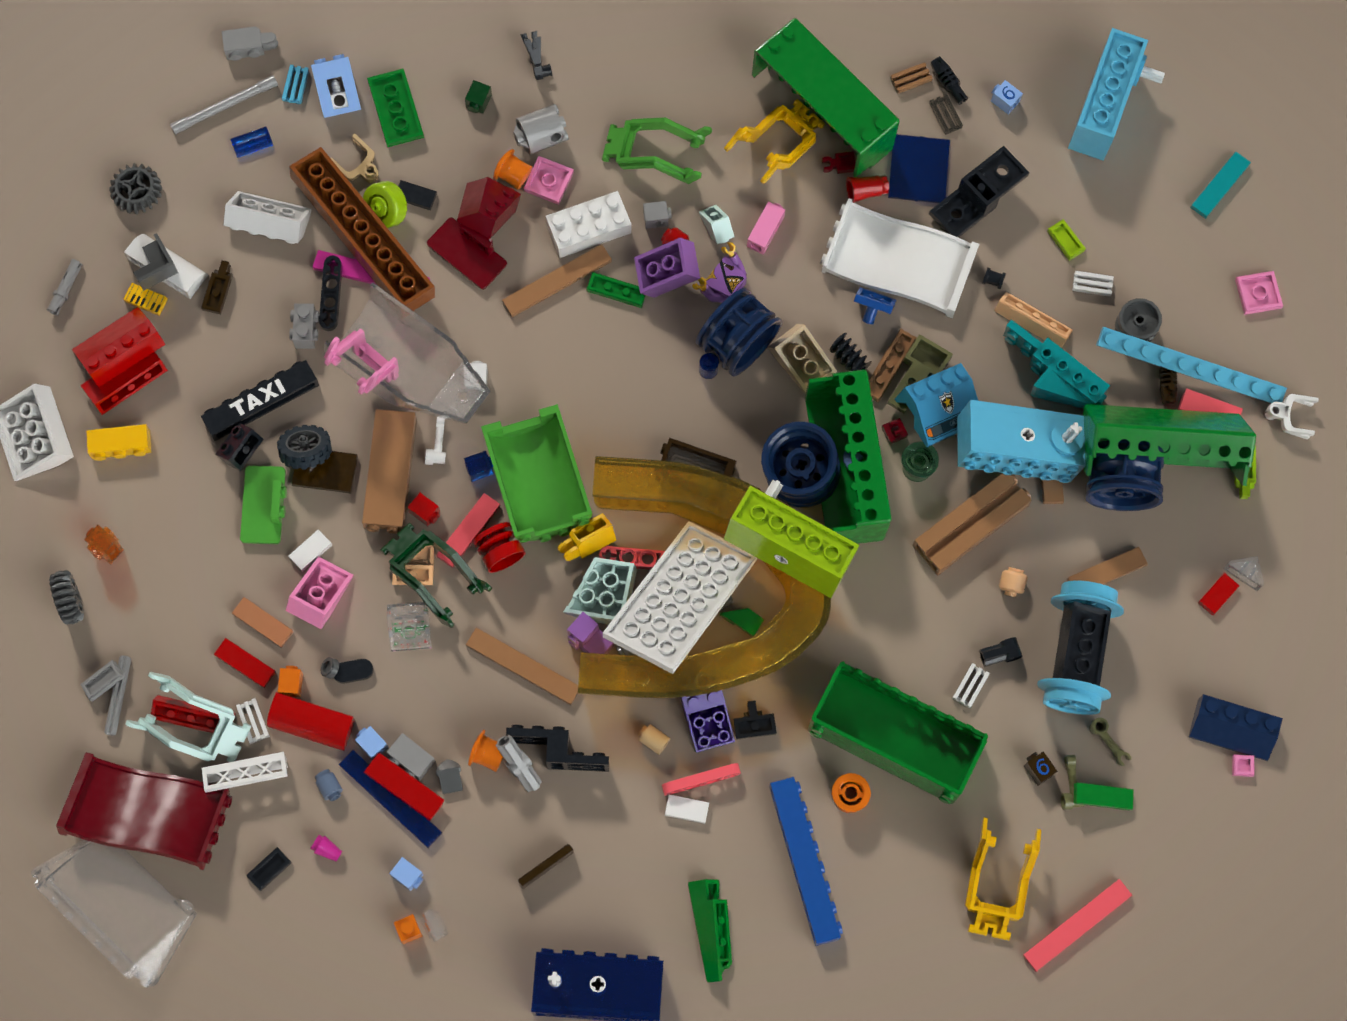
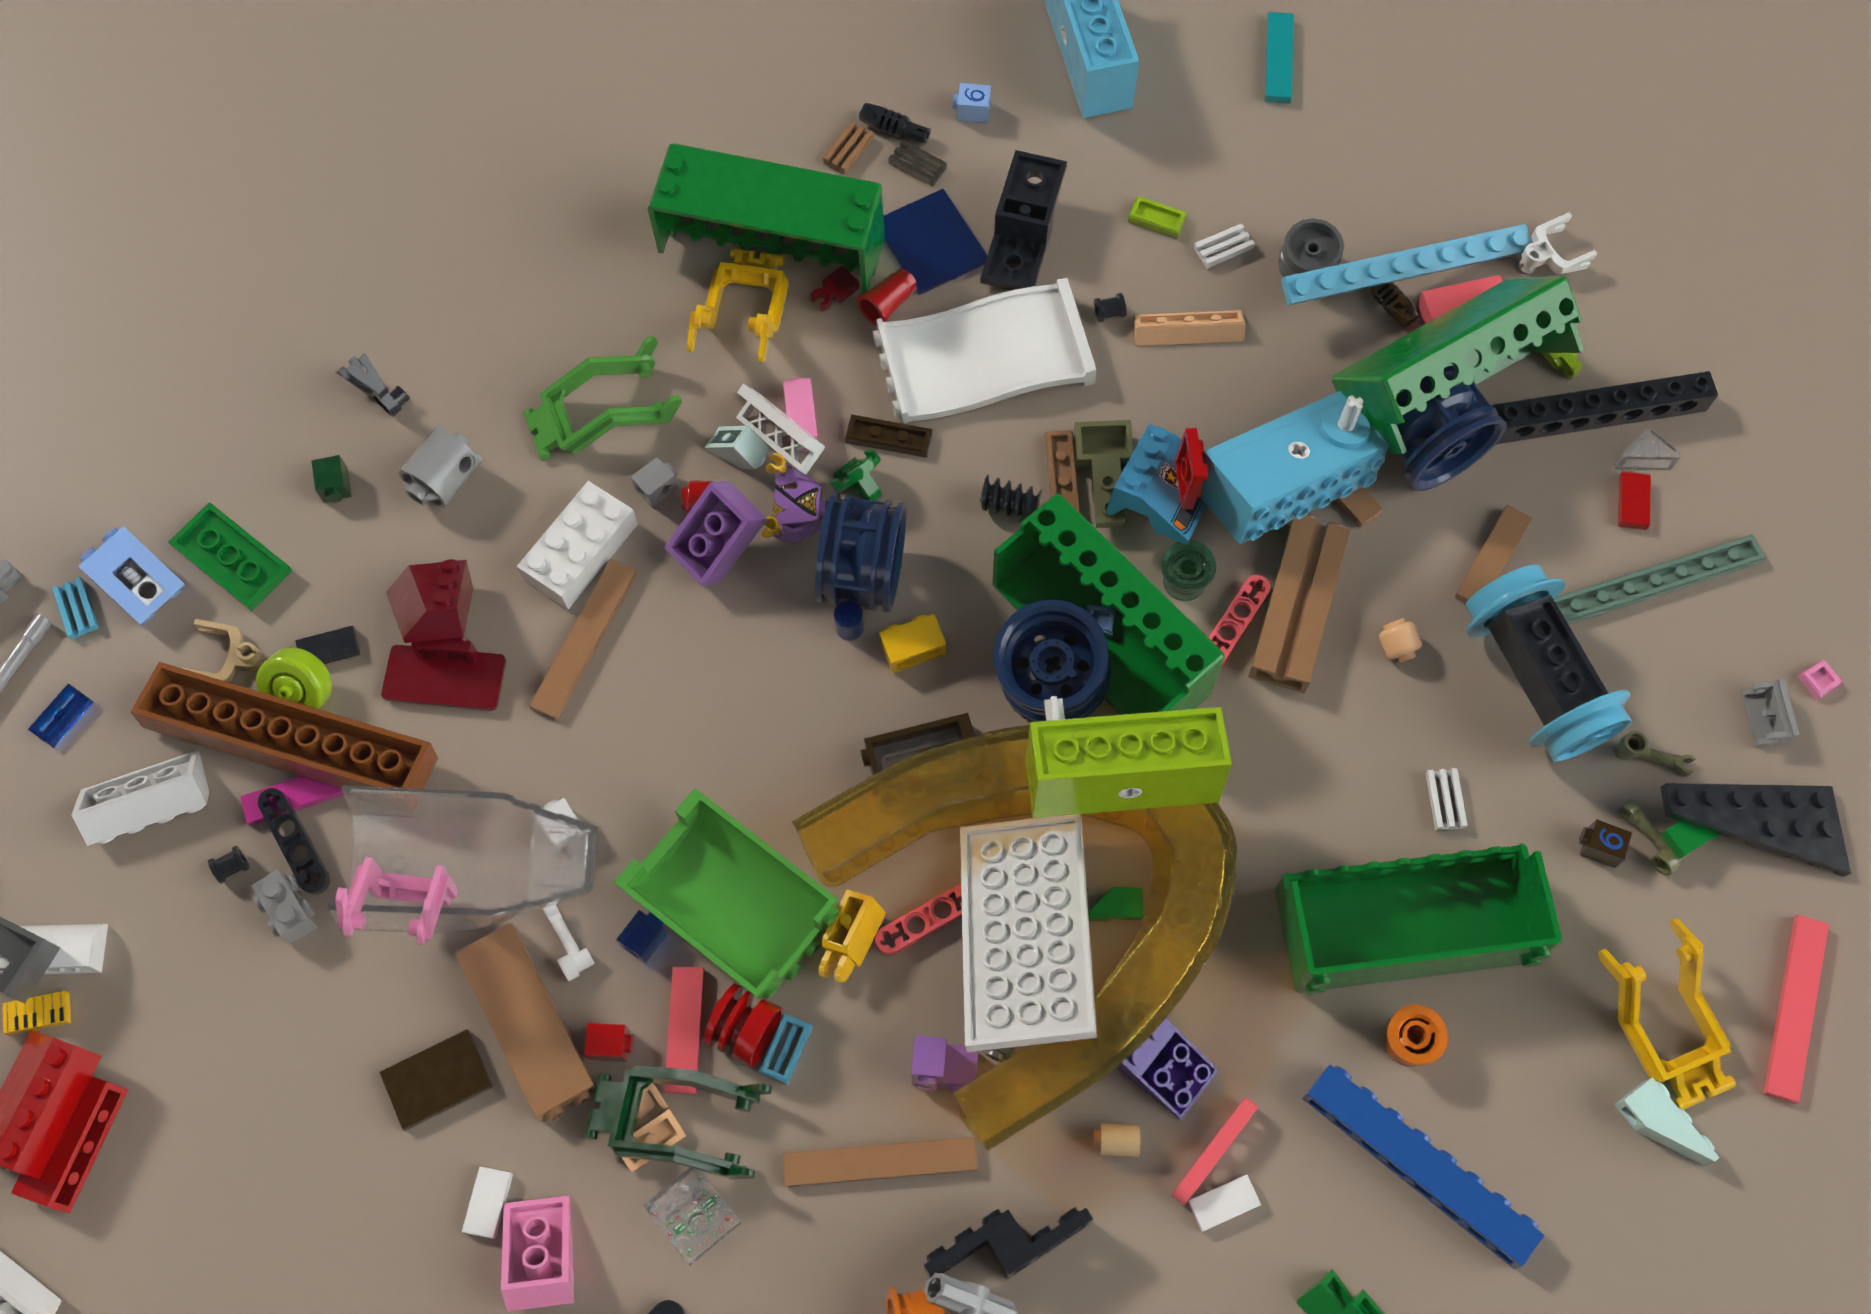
camera: 30 degrees left, 5 degrees down
(118, 442) = (116, 1235): yellow brick -> none
(217, 289) = (132, 934): dark brown hinge -> none
(239, 446) = (296, 1127): black brick -> none
(260, 400) = (284, 1046): black brick -> none
(263, 504) = (381, 1185): bright green bracket -> none
(289, 283) = (228, 864): none -> black bush
(304, 447) = (383, 1076): black wheel -> none
(512, 170) = (435, 538): orange piece -> none
(519, 581) = (775, 1073): none -> medium azure tile
(548, 180) = (490, 524): bright pink tile -> none
(603, 590) = (918, 990): light aqua wedge -> none
(615, 290) = (667, 603): green tile -> none
(735, 401) = (912, 642): none -> yellow hinge
(749, 229) = (783, 426): none -> white fence
(754, 723) = (1226, 1029): black hinge -> none
(772, 282) = (857, 474): none -> green tile
(801, 356) = (954, 538): tan slope -> none
(809, 272) = (889, 435): none -> dark brown tile
(874, 302) = (994, 419): blue tile -> none
(894, 431) = (1131, 550): dark red tile -> none
(925, 506) = (1238, 624): none -> coral beam
(950, 922) = (1658, 1118): none -> light aqua slope
(958, 405) = (1190, 468): none -> red plate
(1006, 650) = (1453, 730): black piece -> none
(1062, 376) = (1272, 375): teal wedge -> none
(1148, 820) = (1771, 817): none -> black wing
(1191, 647) = (1660, 579): none -> sand green tile
(1195, 763) = (1770, 713): none -> light grey hinge
(1235, 727) = (1778, 640): dark blue slope -> none
(1241, 527) = (1607, 406): none -> black brick
(1259, 292) = (1410, 144): bright pink tile -> none

